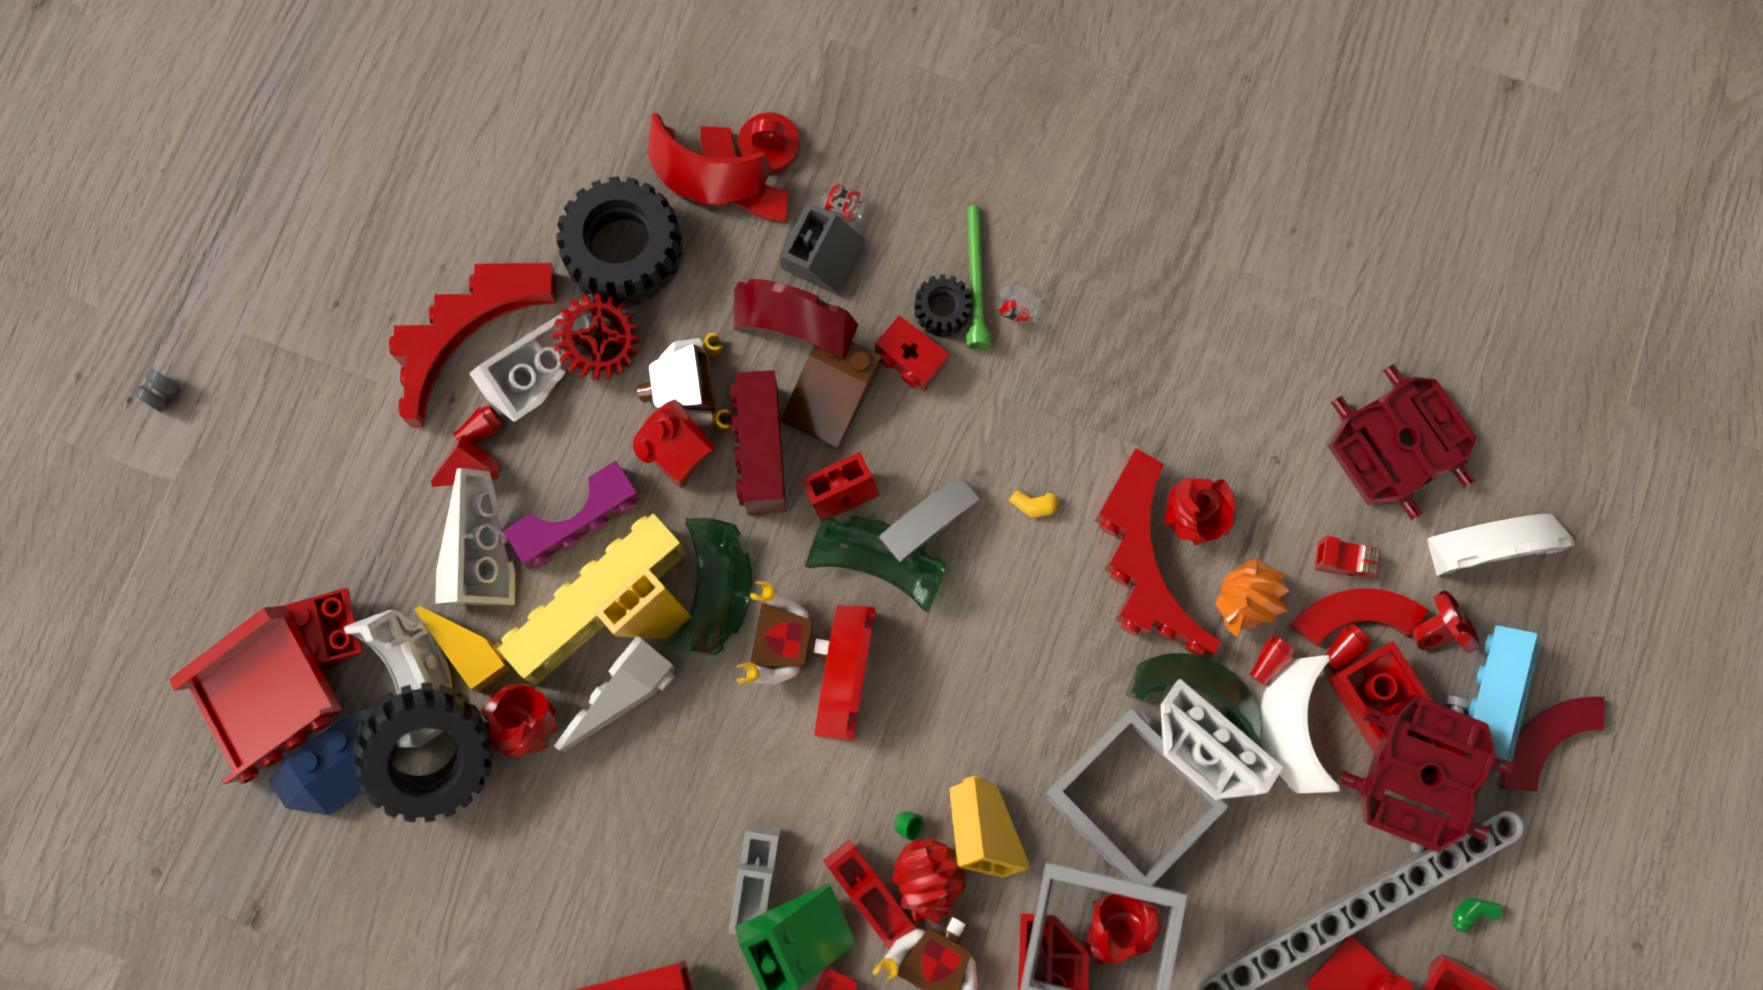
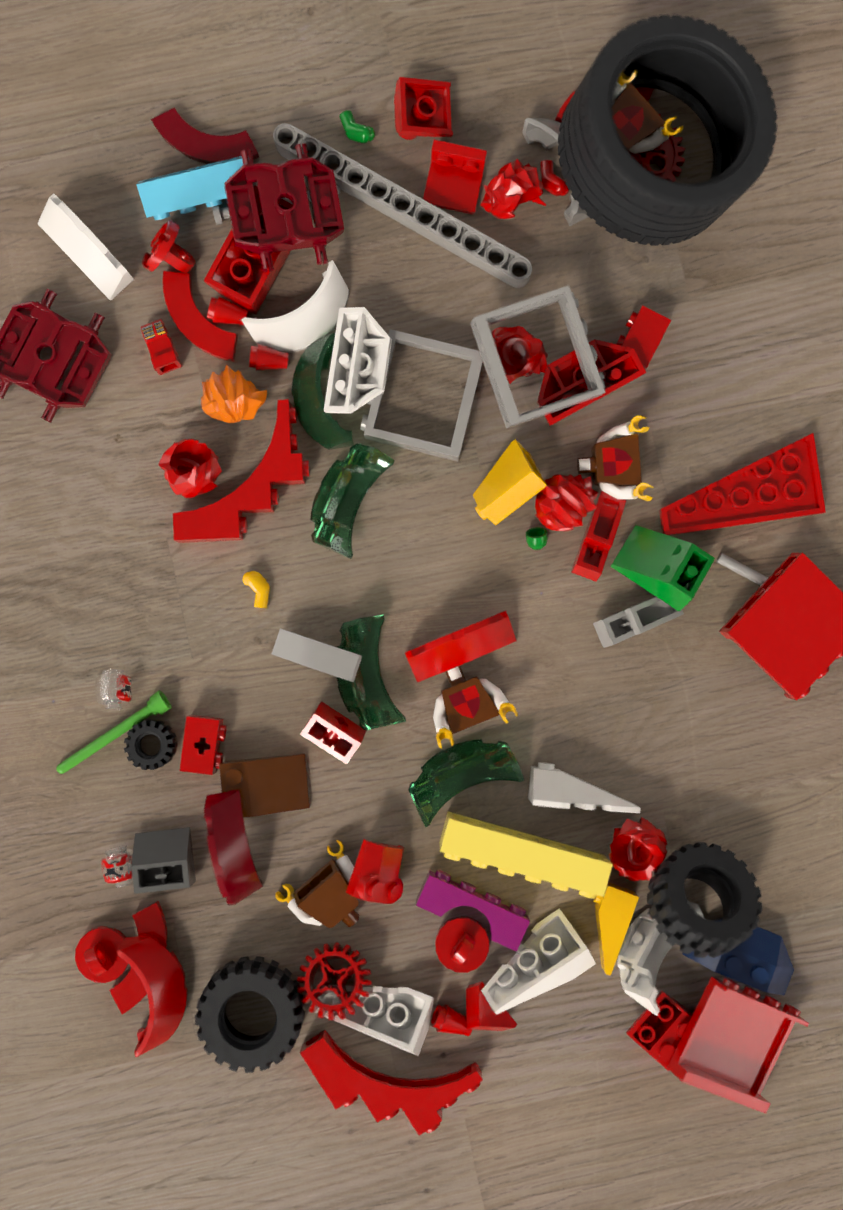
camera: 120 degrees left, 10 degrees up
(546, 484) = (462, 944): none -> red tile
(642, 609) = (510, 814): yellow slope -> none
(760, 440) = (337, 810): dark red brick -> none
(1078, 647) = (342, 494): none -> clear green windscreen

